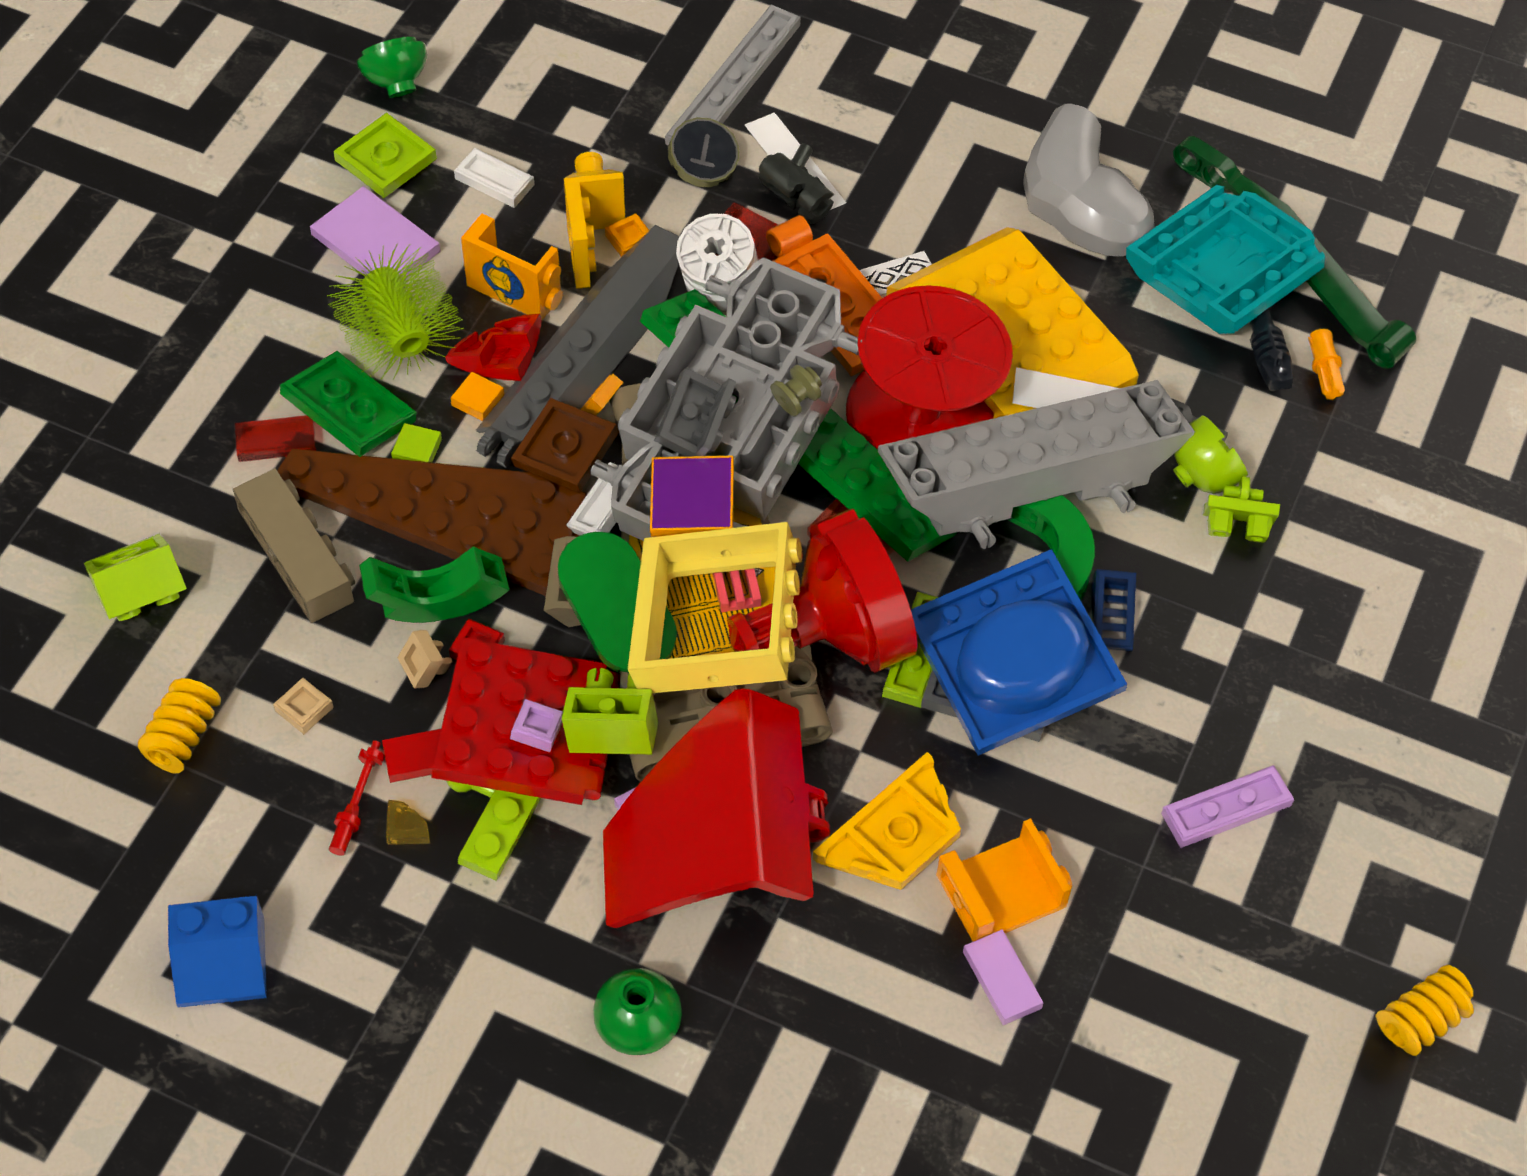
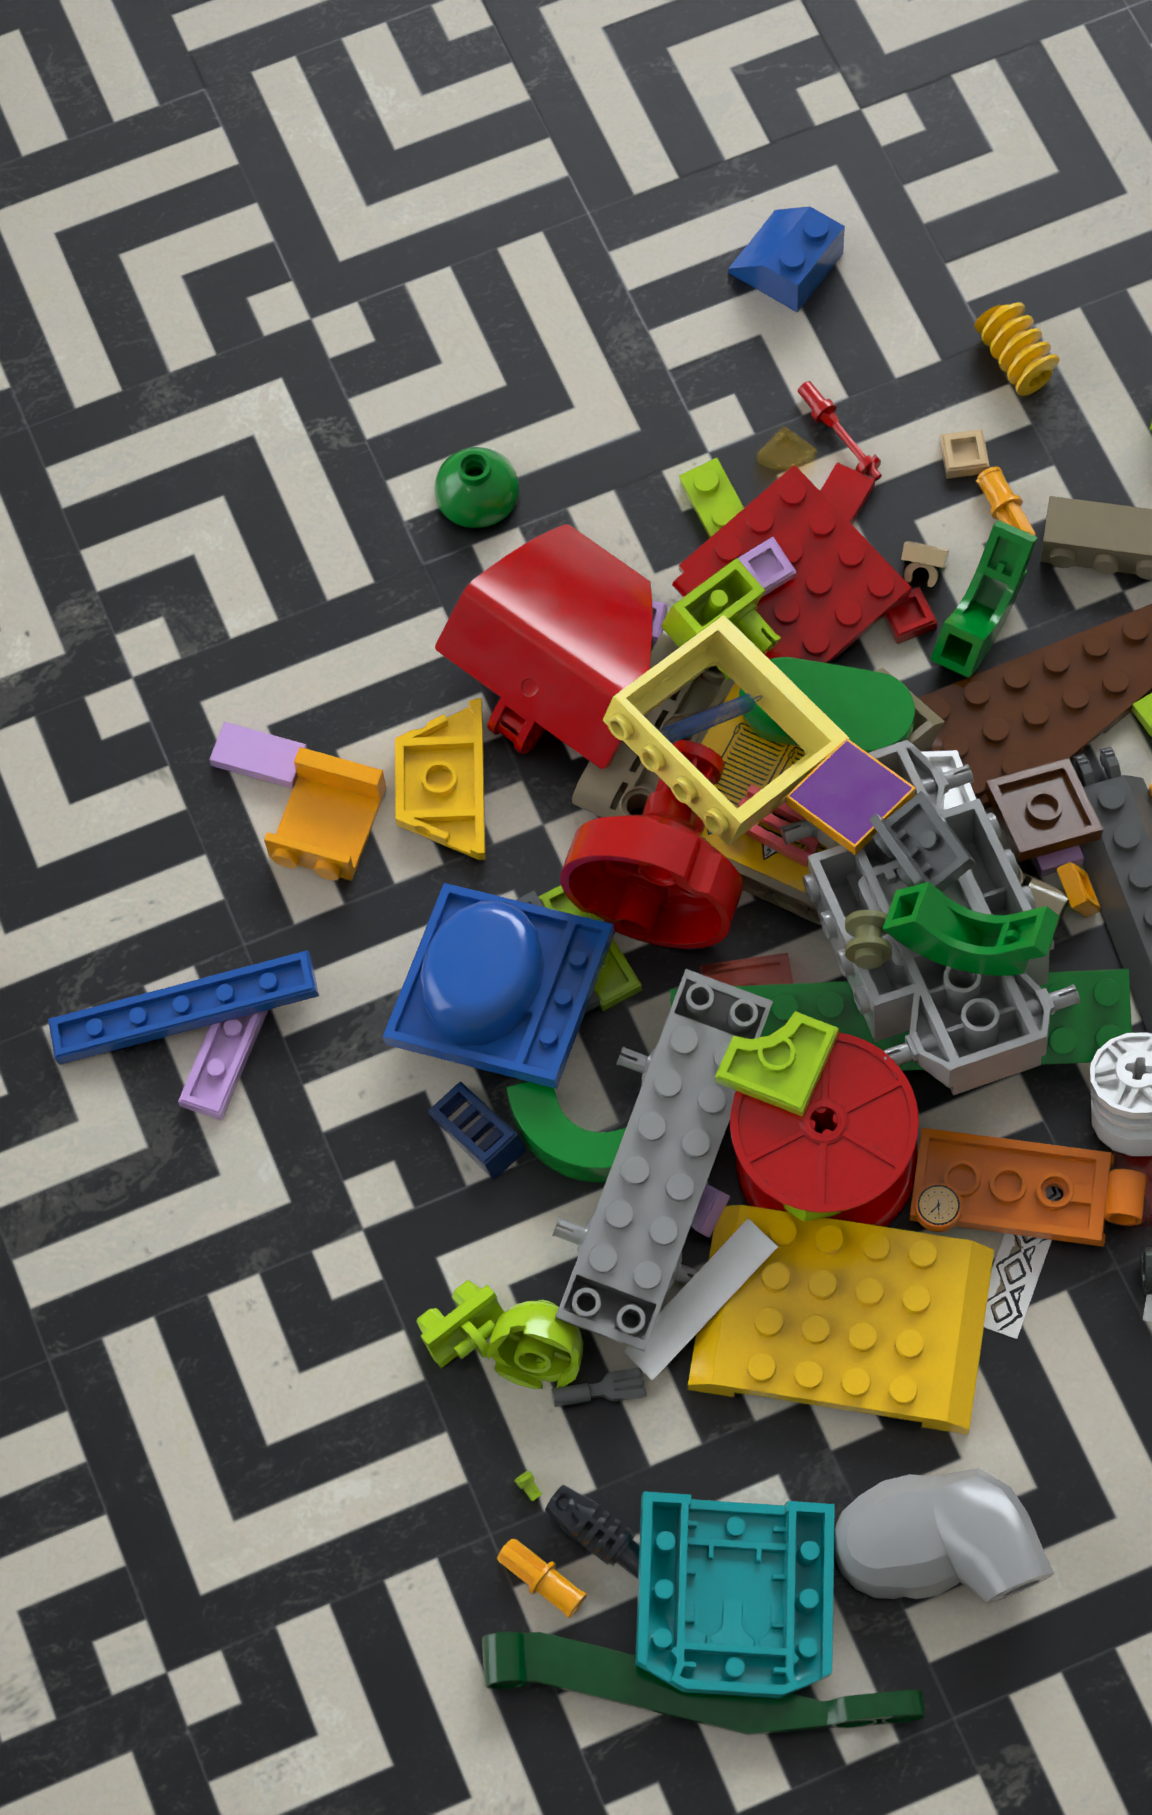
camera: 140 degrees right, 10 degrees up
(329, 643) = (1002, 500): none -> light orange axle
(725, 629) = (709, 719): none -> blue piece
(738, 329) = (968, 939): none -> green arch
(927, 386) = (780, 1066): none -> lime tile
(1235, 849) = (183, 1007): none -> blue tile
(1285, 414) = (526, 1482): none -> lime piece

